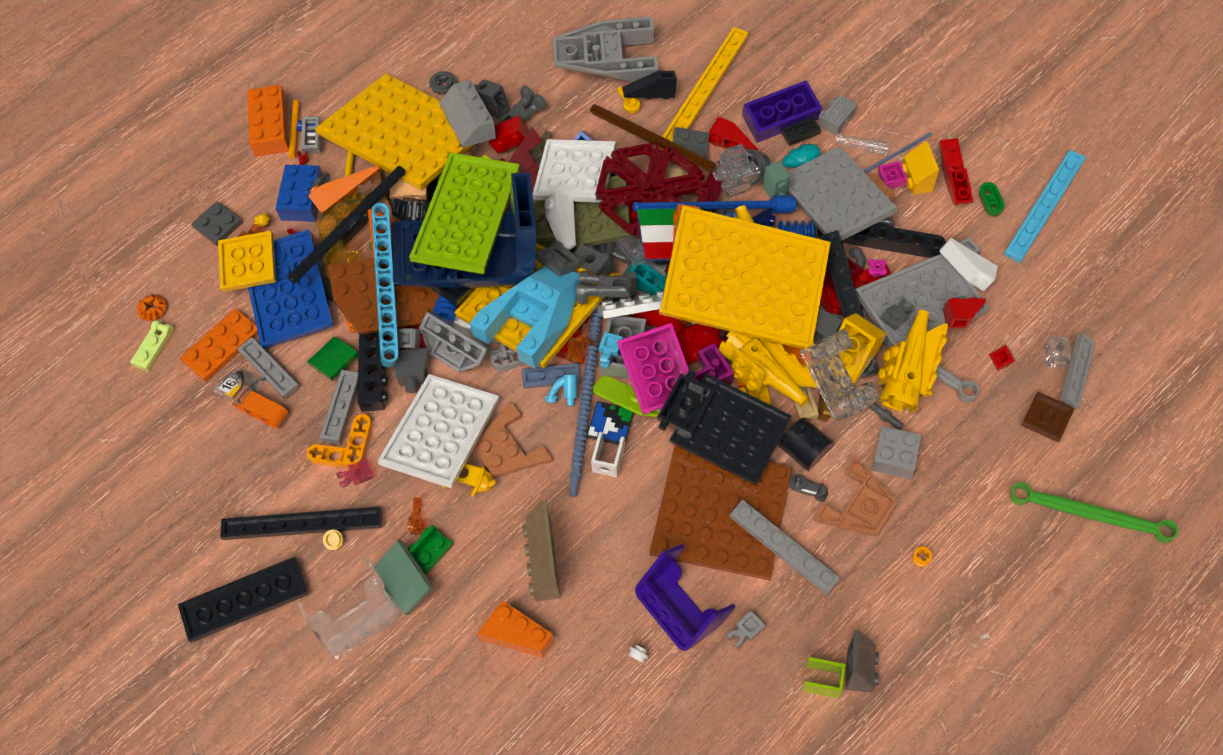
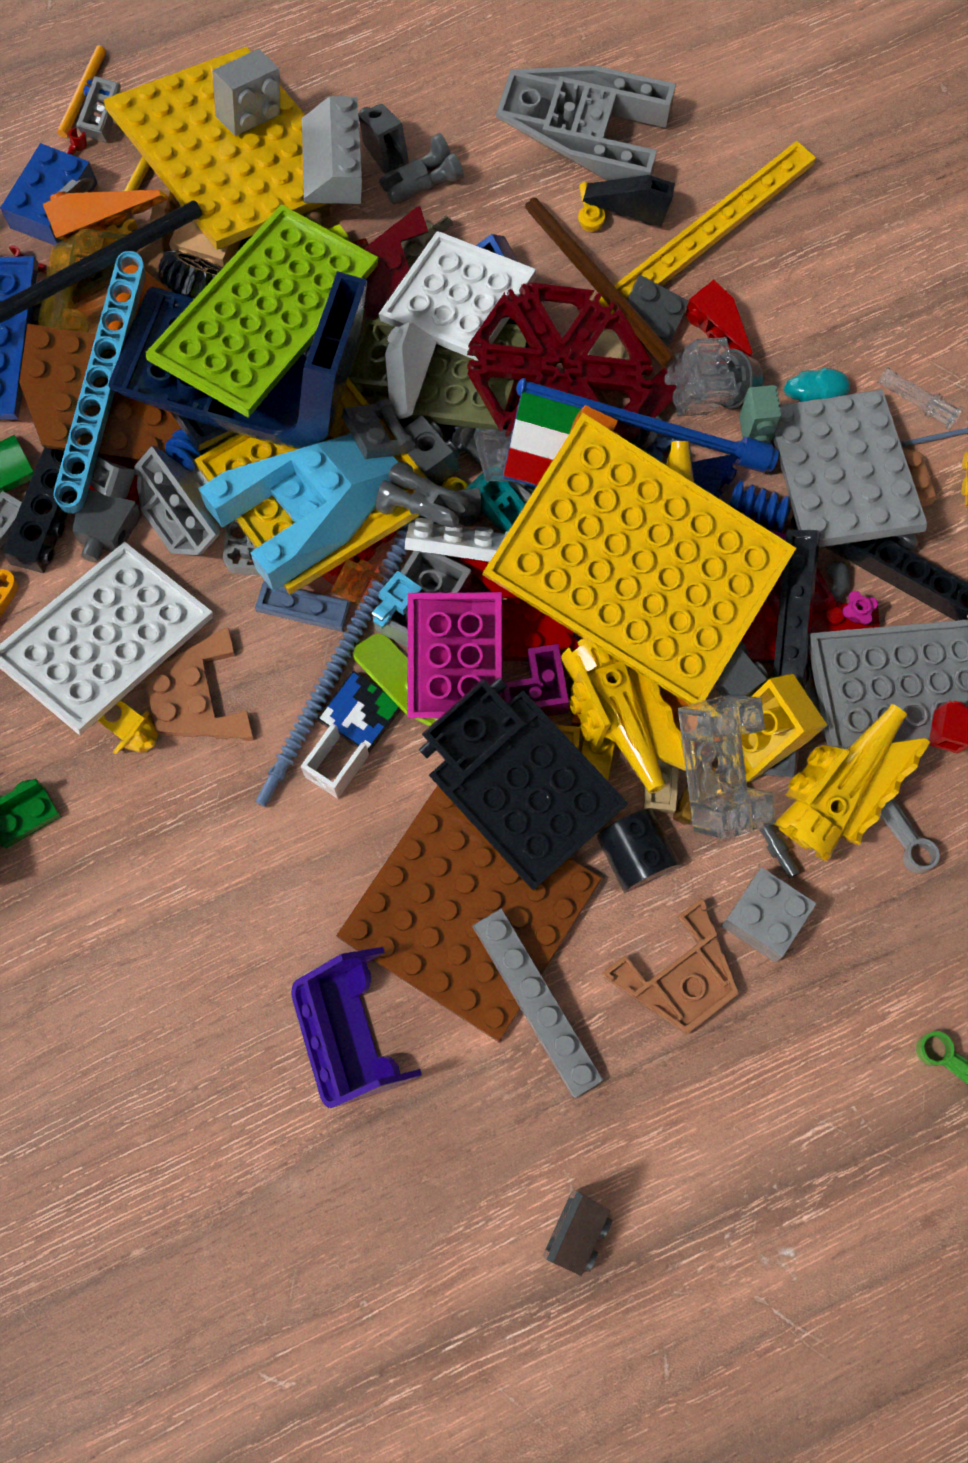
camera: 15 degrees right, 10 degrees up
(267, 120) = (46, 65): orange brick -> none
(403, 96) = (246, 92): none -> light grey brick
(415, 523) = (16, 765): clear orange plate -> none
(442, 76) = (330, 80): dark grey gear -> none
(509, 134) = (384, 203): red brick -> none
(516, 631) = (93, 985): orange wedge -> none
(541, 553) = (176, 883): dark tan slope -> none
(569, 385) = (319, 640): medium azure plant -> none
(638, 653) = (257, 1086): white plate -> none
(748, 628) = (435, 1107): light grey plate -> none
(780, 109) = (815, 303): dark purple brick -> none
(800, 131) = (833, 345): pearl dark grey plate -> none
(805, 486) = (608, 914): flat silver piece -> none
(827, 666) = (530, 1256): lime piece -> none
(837, 115) = (900, 337): light grey brick -> none
(892, 174) = (946, 464): dark pink piece -> none
(896, 315) = (857, 698): dark grey plate -> none
(917, 560) = (733, 1097): light orange bush -> none

